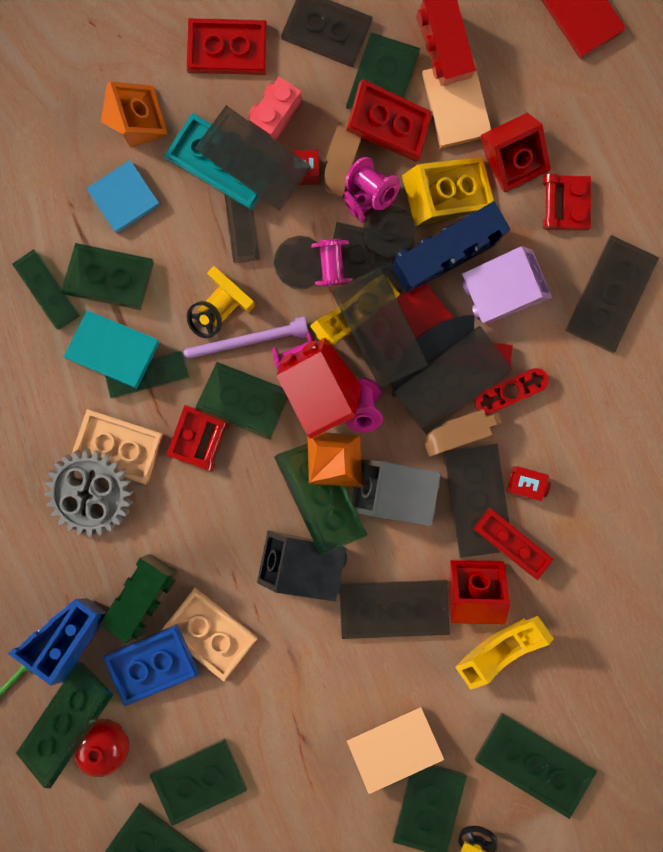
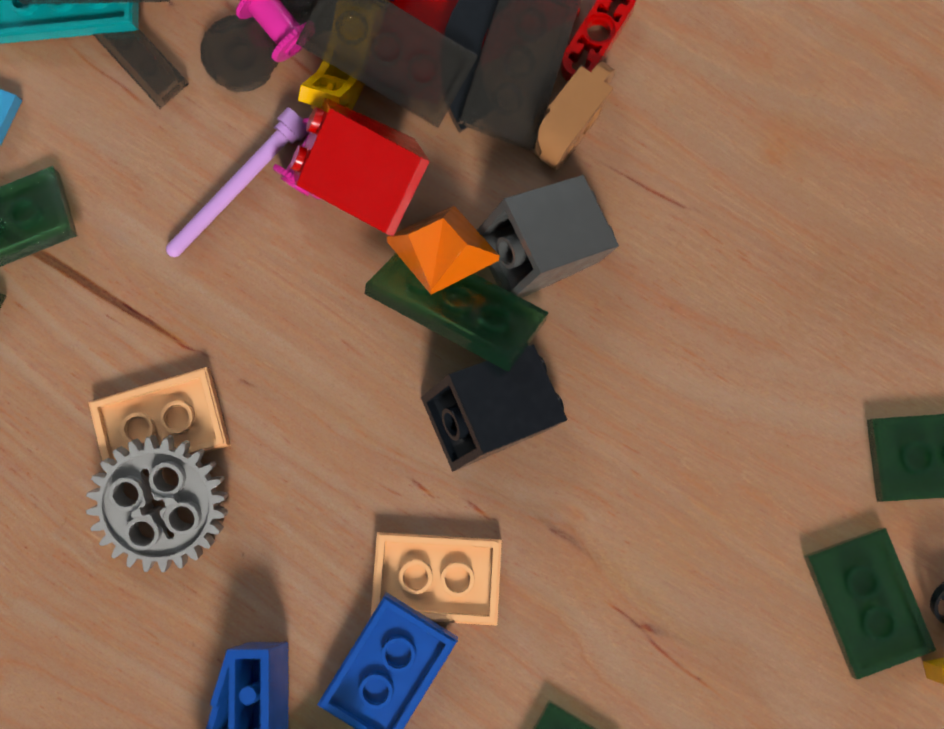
camera: 30 degrees left, 5 degrees down
(111, 349) = (71, 306): teal tile -> none
(138, 598) = (313, 595): dark green wedge -> none
(159, 372) = (137, 310): clear green tile -> none
(189, 436) = (241, 344): red plate -> none
(218, 305) = (175, 161): yellow piece -> none
(242, 400) = (279, 257): clear green tile -> none
(367, 416) = (447, 164): dark pink hose -> none
(394, 609) = (645, 384): clear smoke tile -> none
(395, 750) = (775, 558): light nougat tile -> none
(474, 486) = (652, 184): clear smoke tile -> none
(478, 592) = (734, 290): red slope -> none
(501, 649) = (809, 346): yellow arch -> none
(513, 544) = (732, 203): red tile -> none
(528, 483) = (697, 121): red brick -> none

